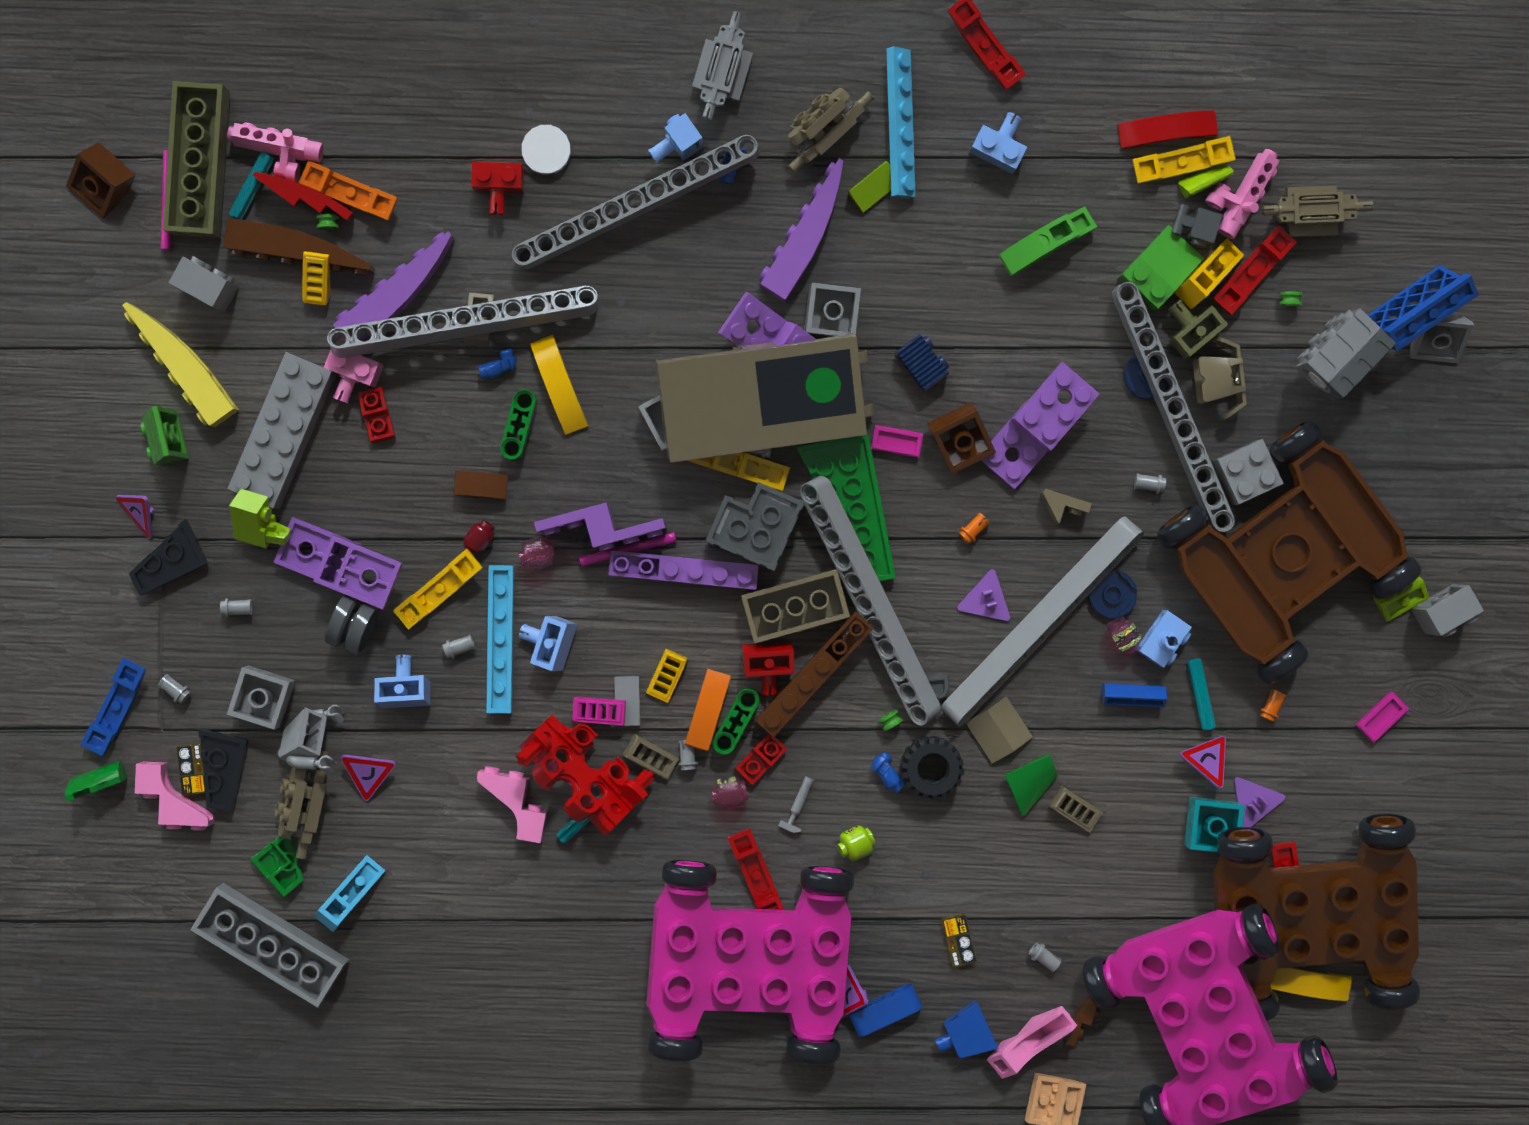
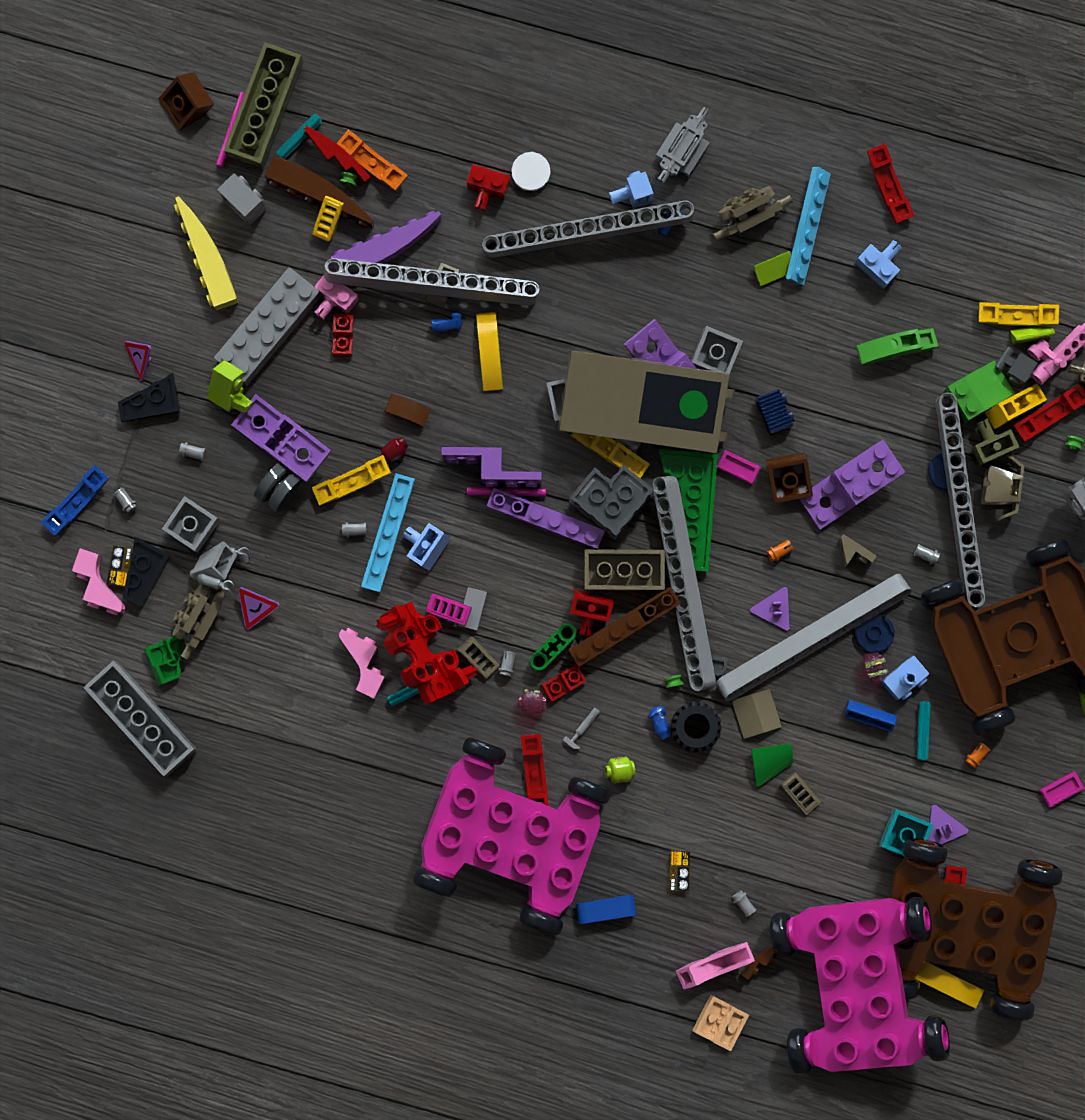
camera: 20 degrees right, 5 degrees down
(95, 780) = (46, 553): green slope -> none
(164, 436) = (176, 304): bright green slope -> none
(277, 143) = (330, 111): bright pink piece -> none
(349, 893) = (212, 697): medium azure slope -> none
(403, 689) = (301, 549): light blue brick -> none
(515, 417) = (448, 367): green beam -> none
(537, 553) = (435, 474): clear pink head -> none
(675, 657) = (520, 585): yellow slope -> none
(707, 710) = (533, 632): orange slope -> none
(802, 239) = (709, 292): medium lavender slope -> none
(854, 995) = (585, 888): medium lavender piece -> none
(967, 1032) = (666, 945): blue torso -> none
(1167, 128) = (1013, 286): red slope -> none
(1208, 760) = (914, 783): piece -> none
(1247, 472) = (1005, 566): light grey brick -> none

